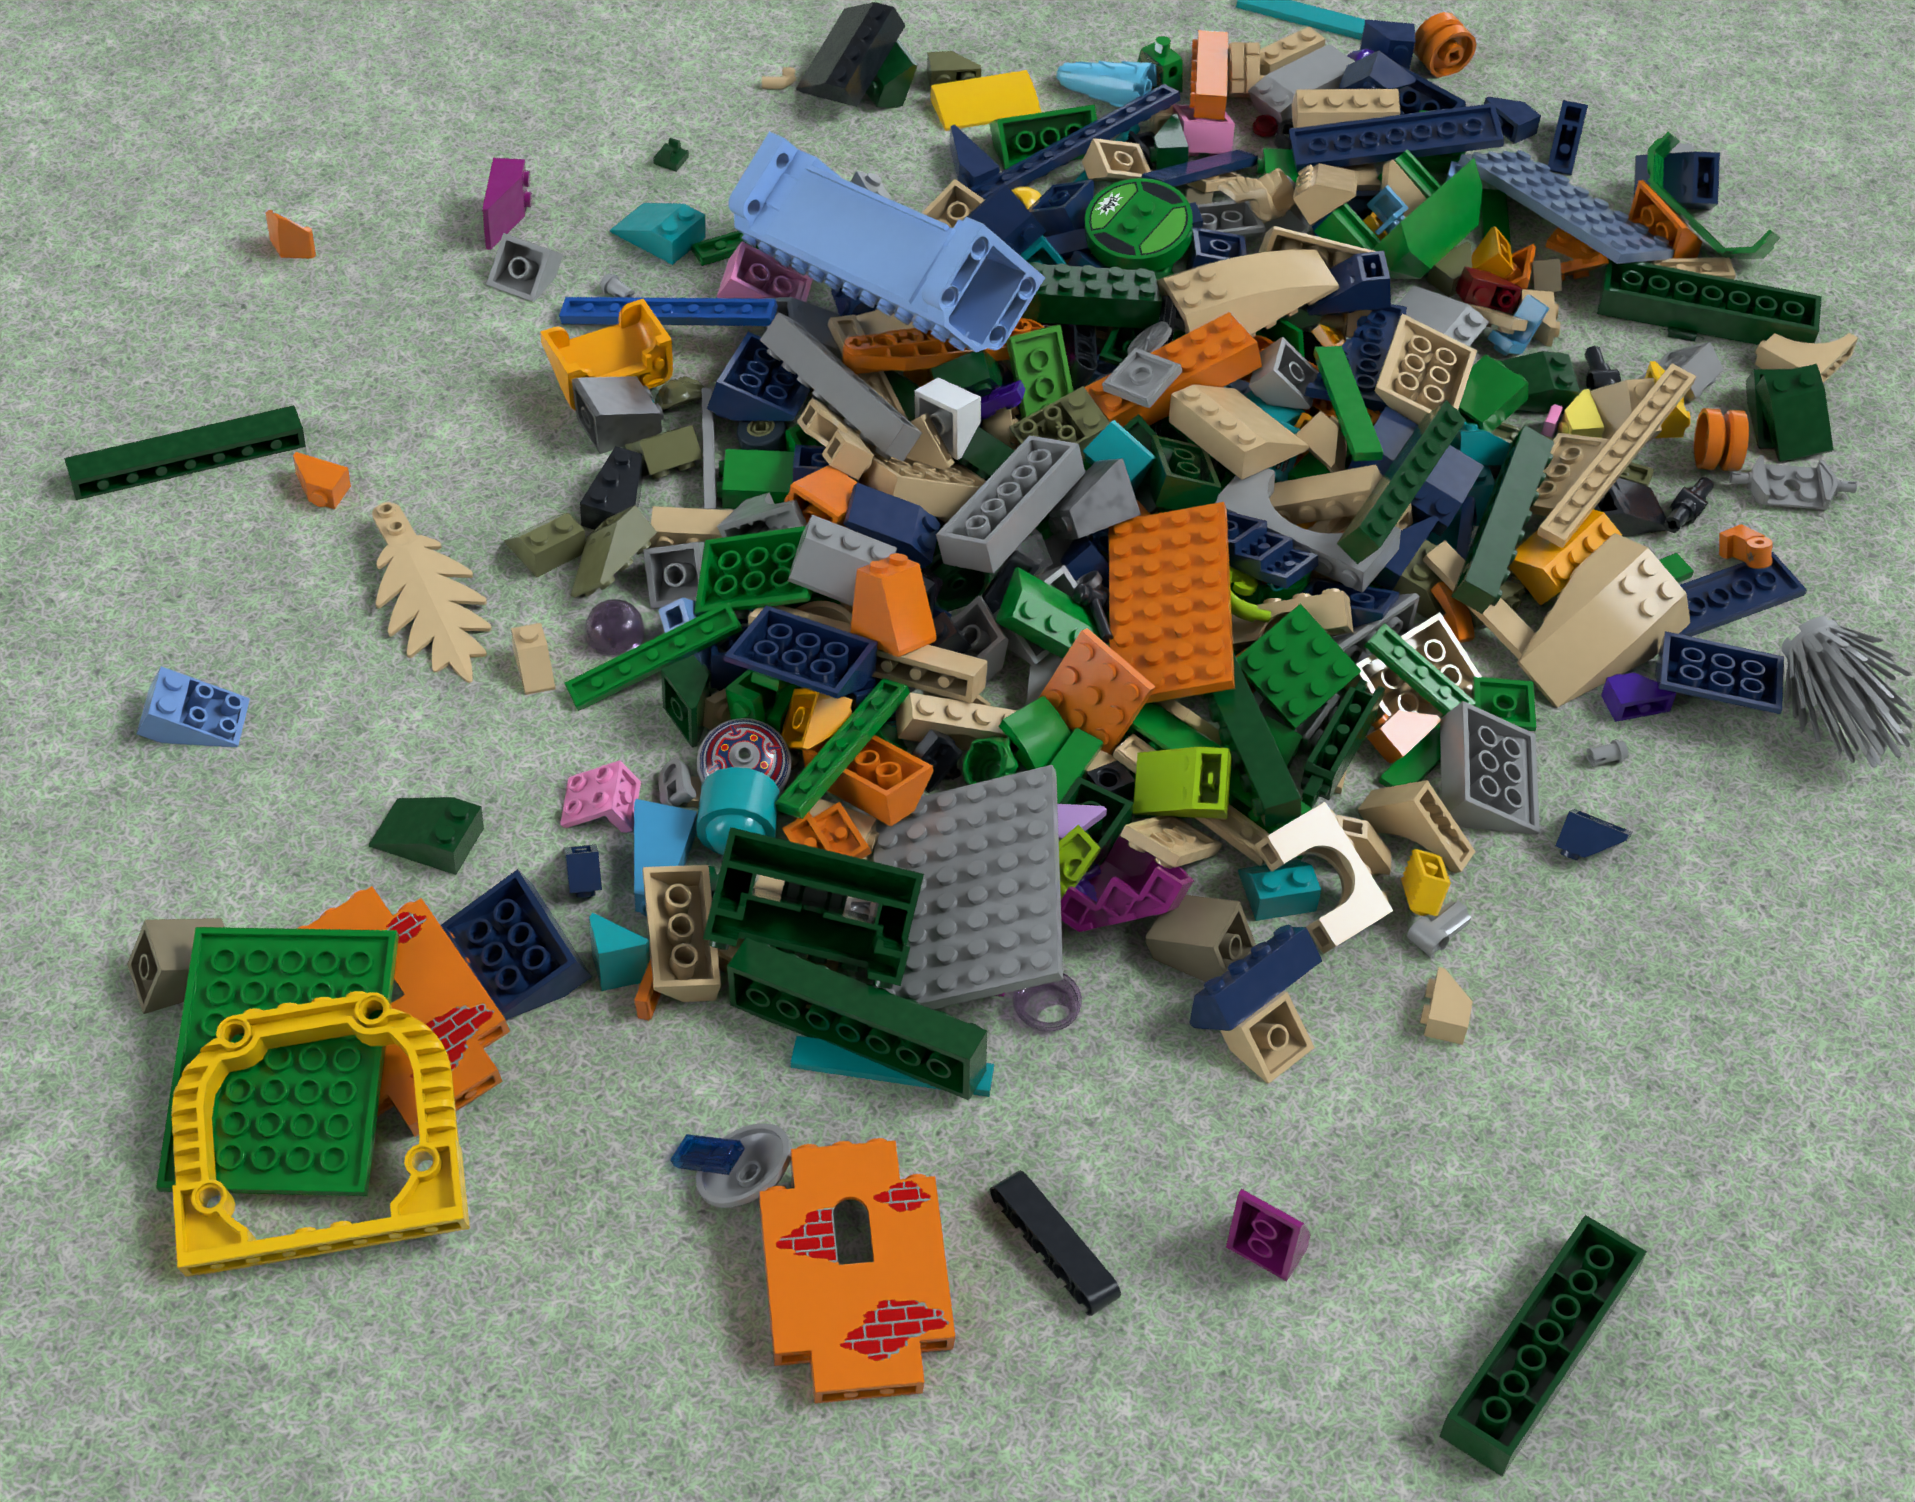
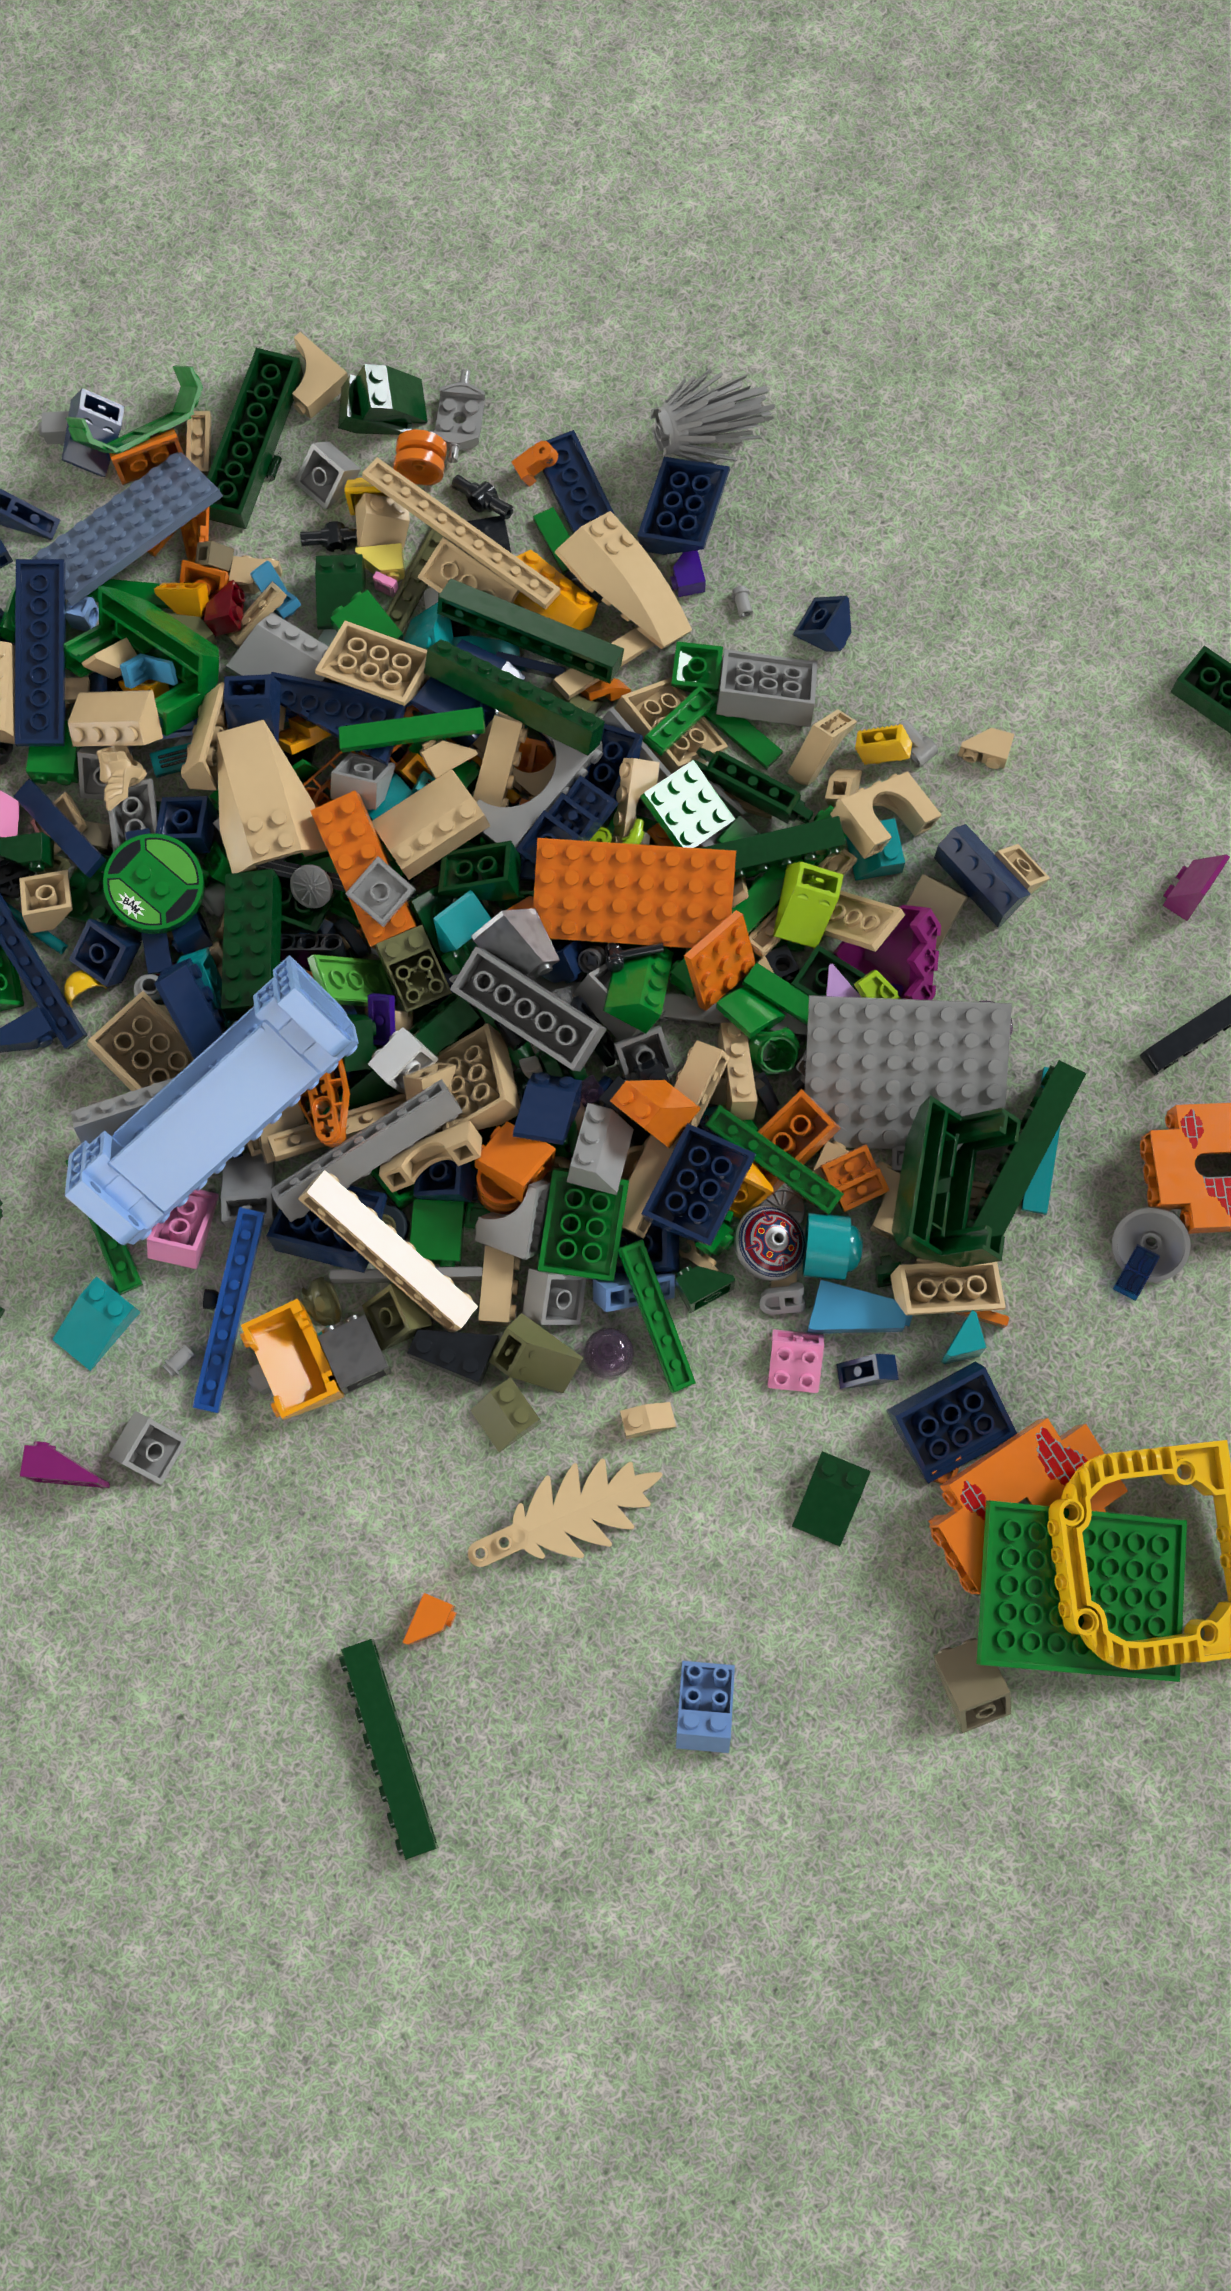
camera: 80 degrees left, 25 degrees up
(289, 237) = (98, 1679): orange slope -> none
(722, 409) = (388, 1251): none -> brick
(1400, 732) = (731, 739): slope -> none

